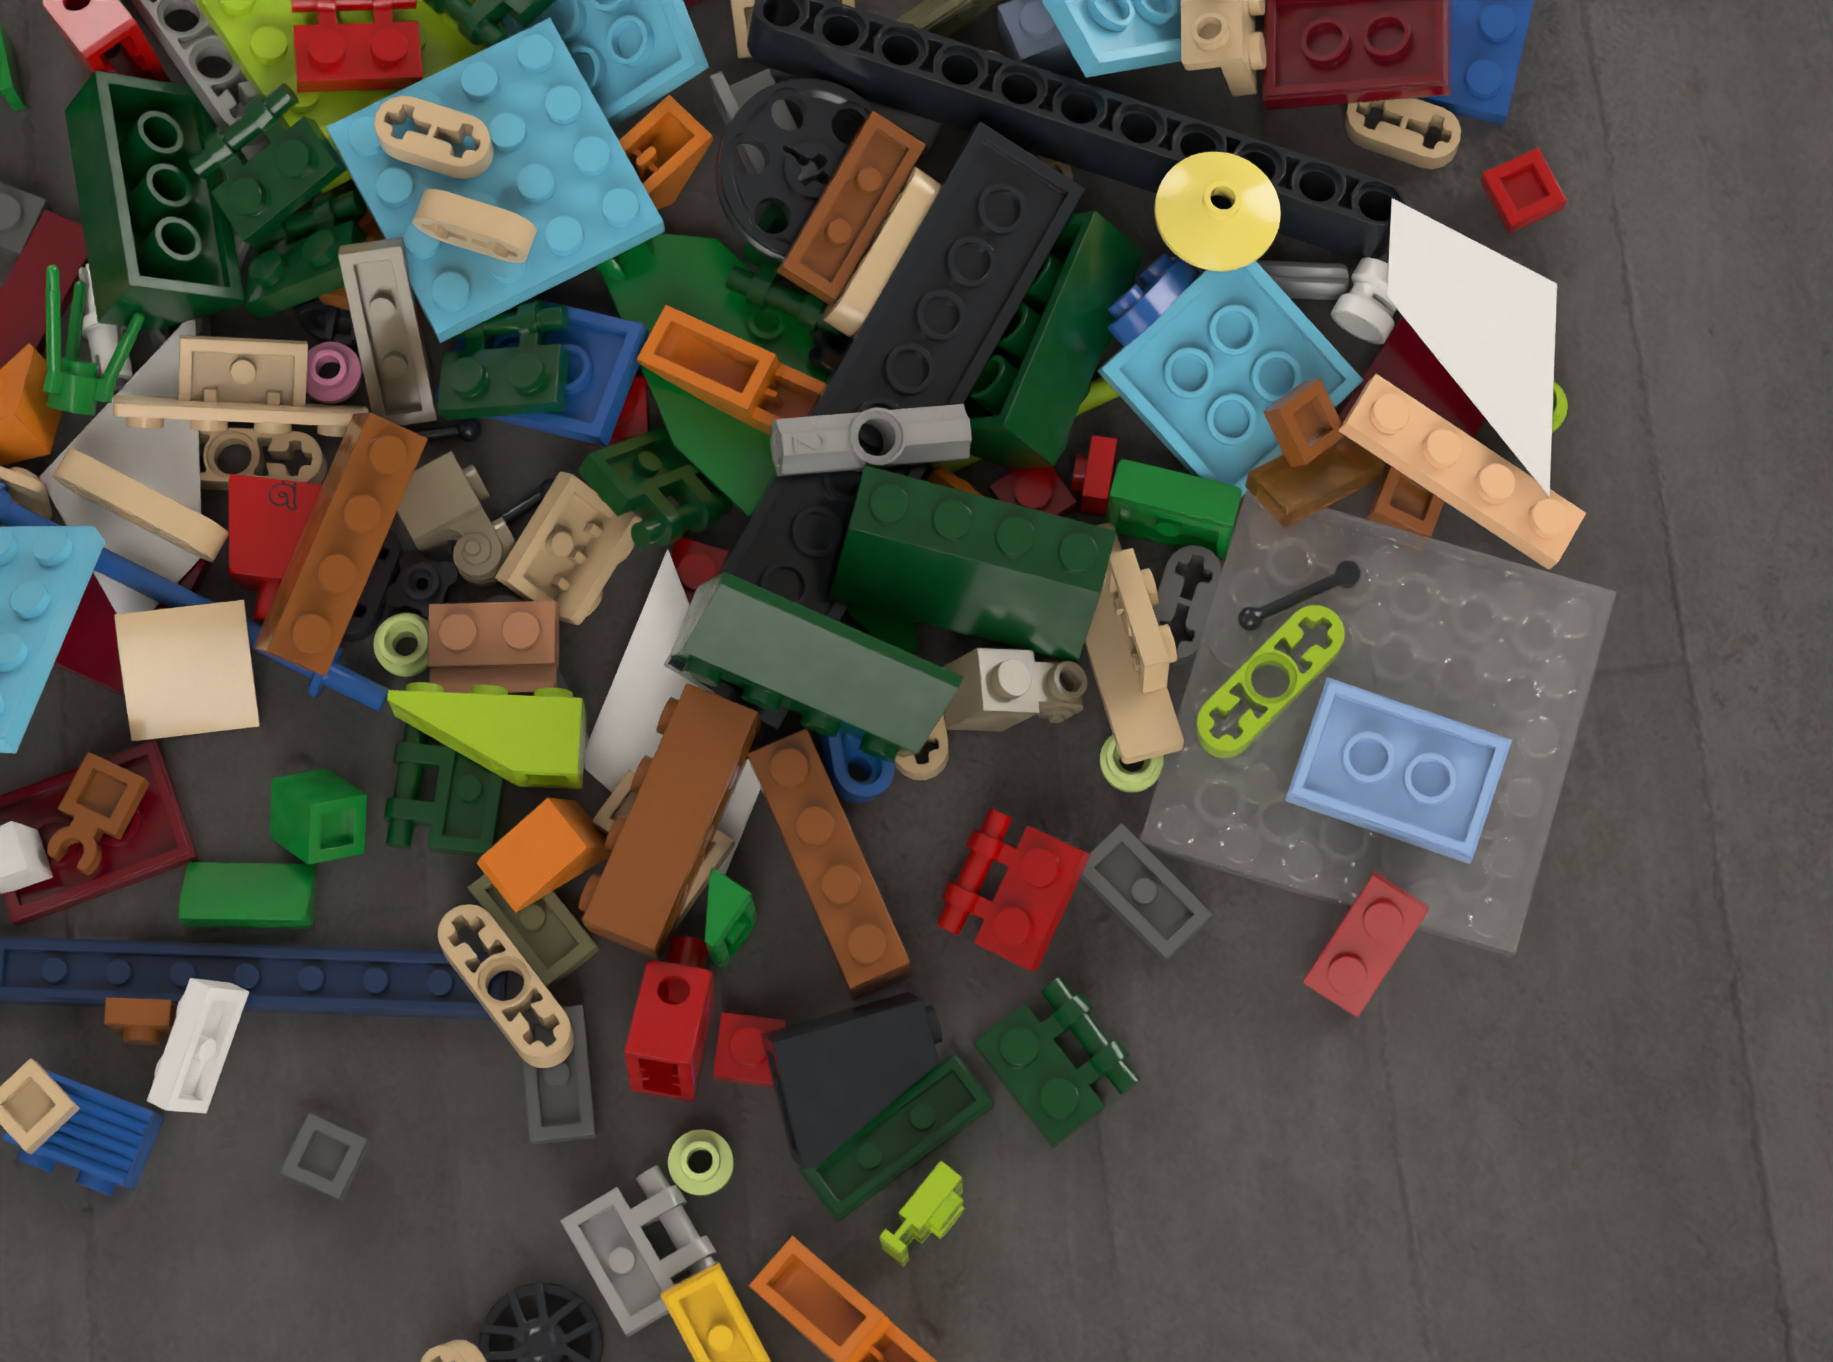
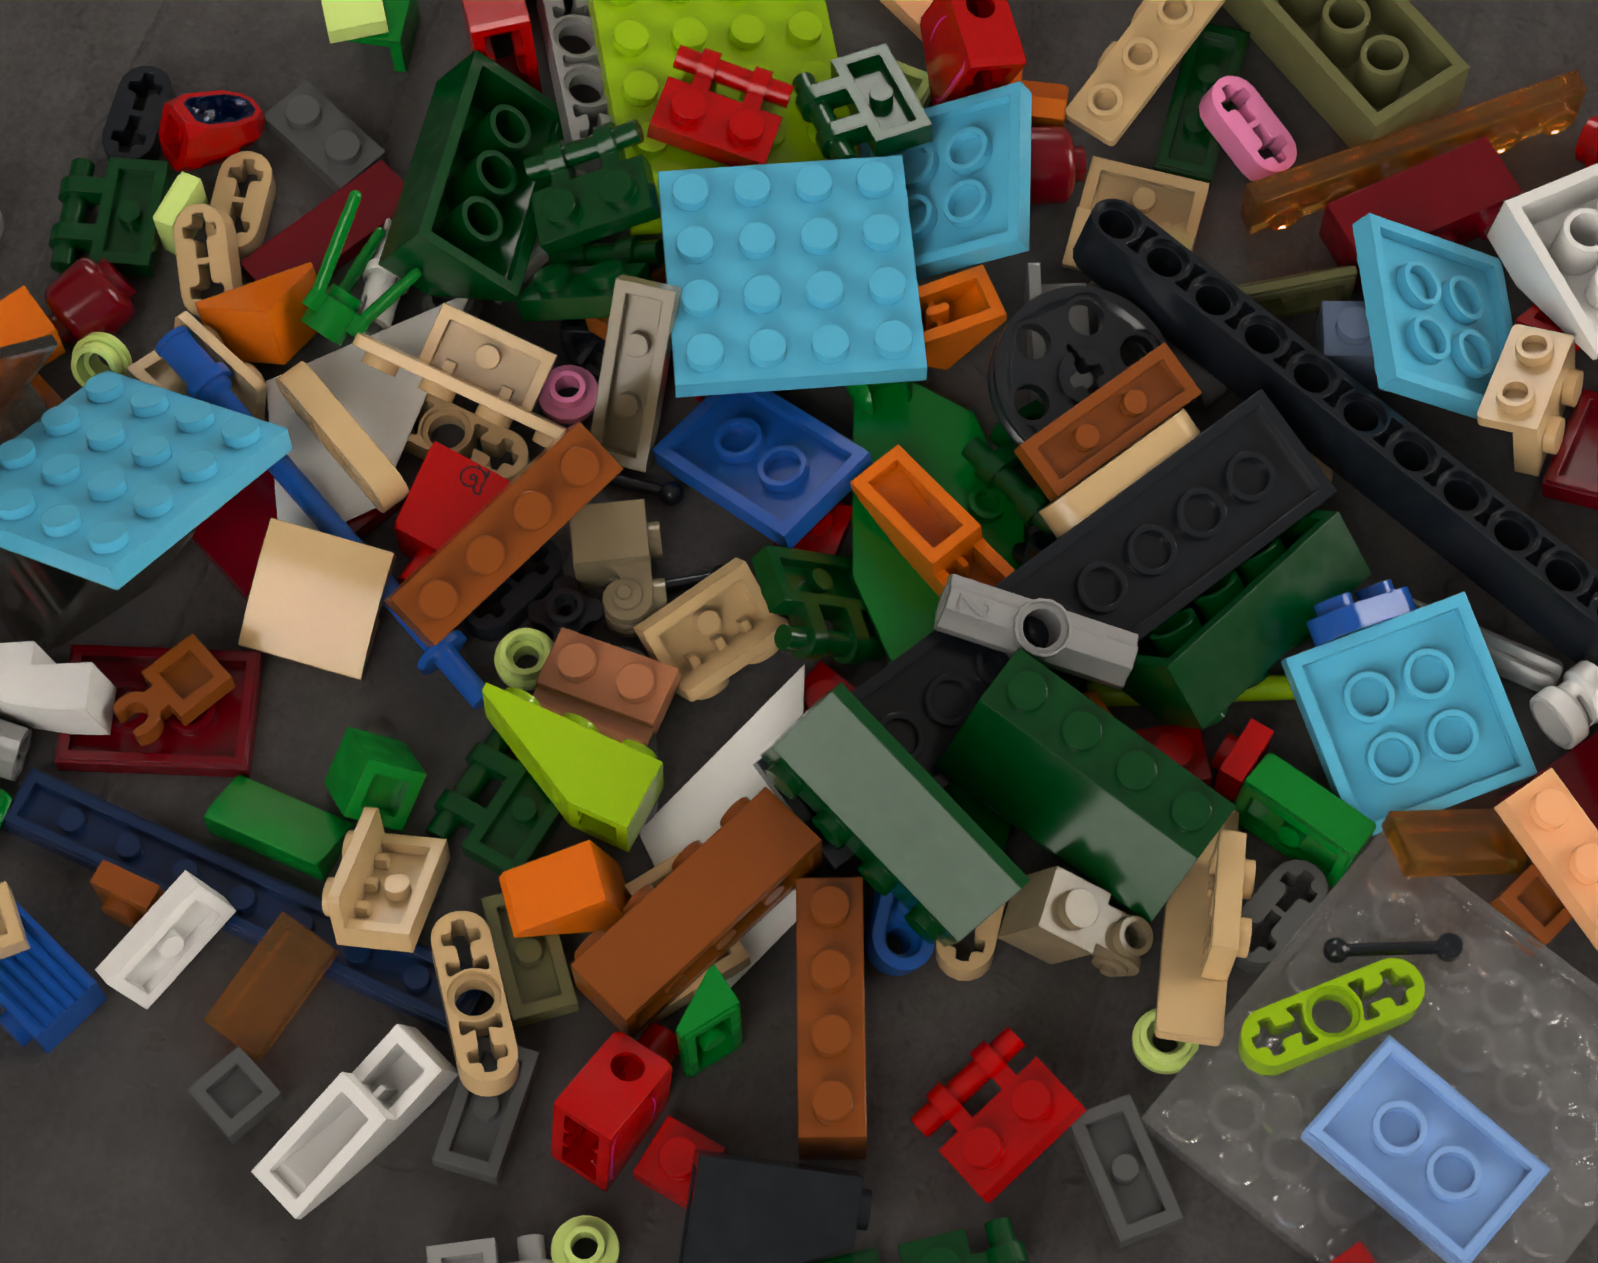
camera: 20 degrees right, 10 degrees down
(312, 1046) = (271, 986): none -> clear orange tile
(375, 913) = (383, 886): none -> tan bracket
(438, 124) = (743, 218): tan beam -> none
(444, 1135) = (355, 1120): none -> white slope
(474, 225) = (751, 299): tan beam -> none
(509, 379) = (724, 456): dark green plate -> none
(1210, 235) = (1444, 576): light yellow dish -> none
(1304, 422) = (1463, 786): dark orange plate -> none

